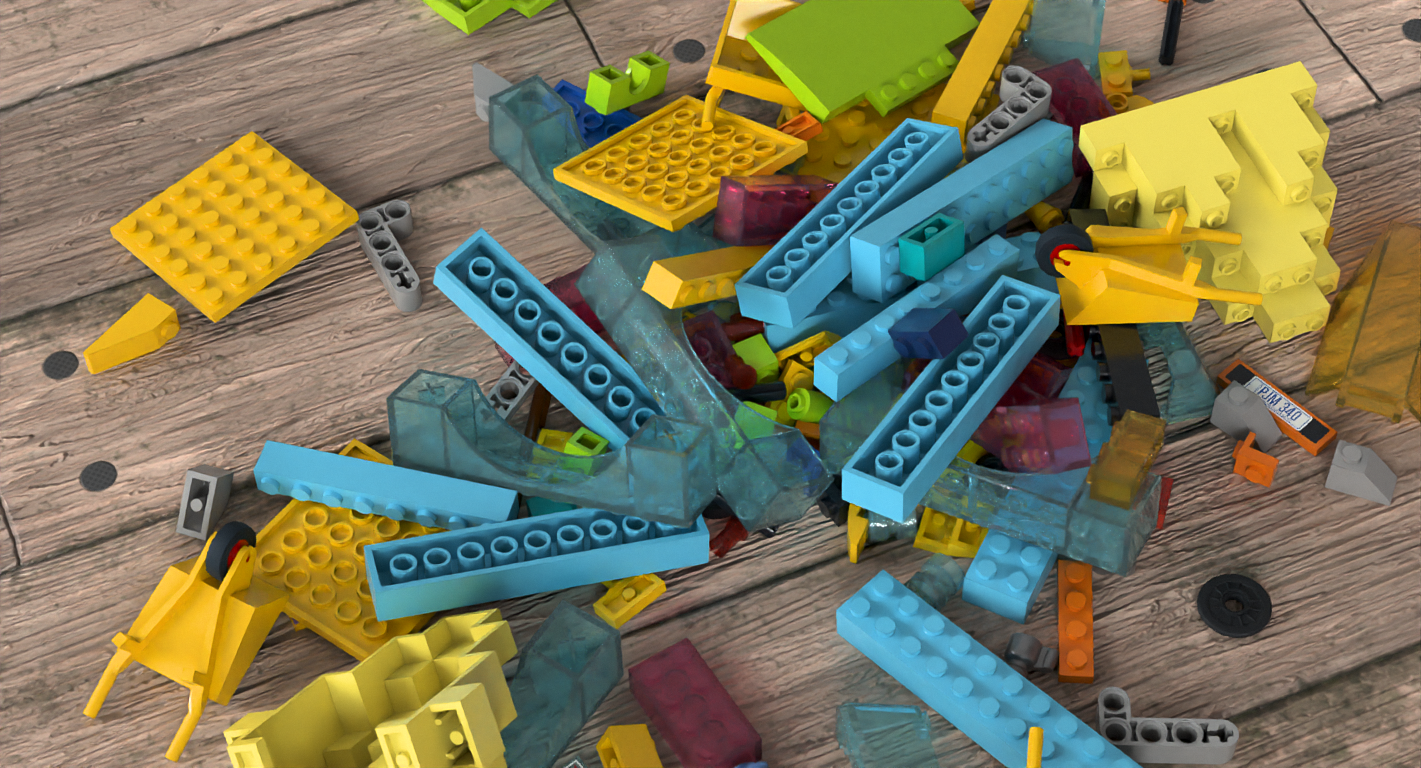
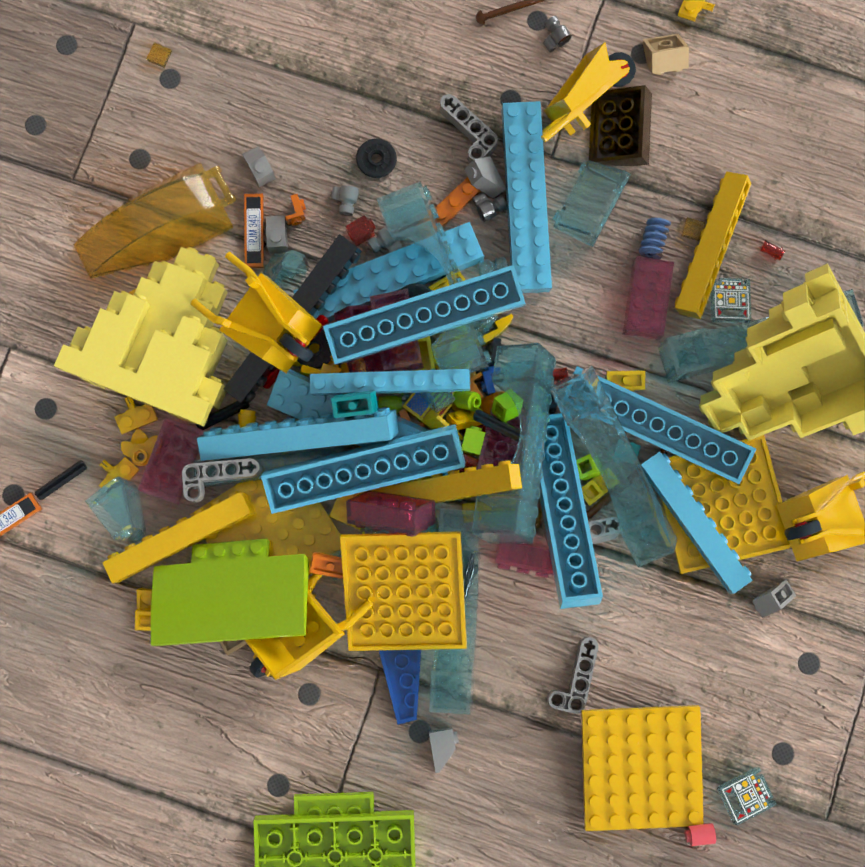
camera: 145 degrees left, 30 degrees up
(75, 292) = (751, 793): none -> clear light blue container
(105, 216) = (700, 834): none -> coral brick
(136, 333) = (732, 736): yellow slope -> none
(614, 90) = (370, 682): lime arch -> none
(743, 375) = (492, 432): clear red pin -> none
(928, 333) = (410, 351): dark blue brick -> none
(1043, 436) = (411, 256): clear pink brick -> none
(1075, 685) = (485, 177): none -> light grey slope
(1126, 459) = (387, 214): clear yellow brick -> none
(1212, 526) = (348, 196): none -> light grey piece

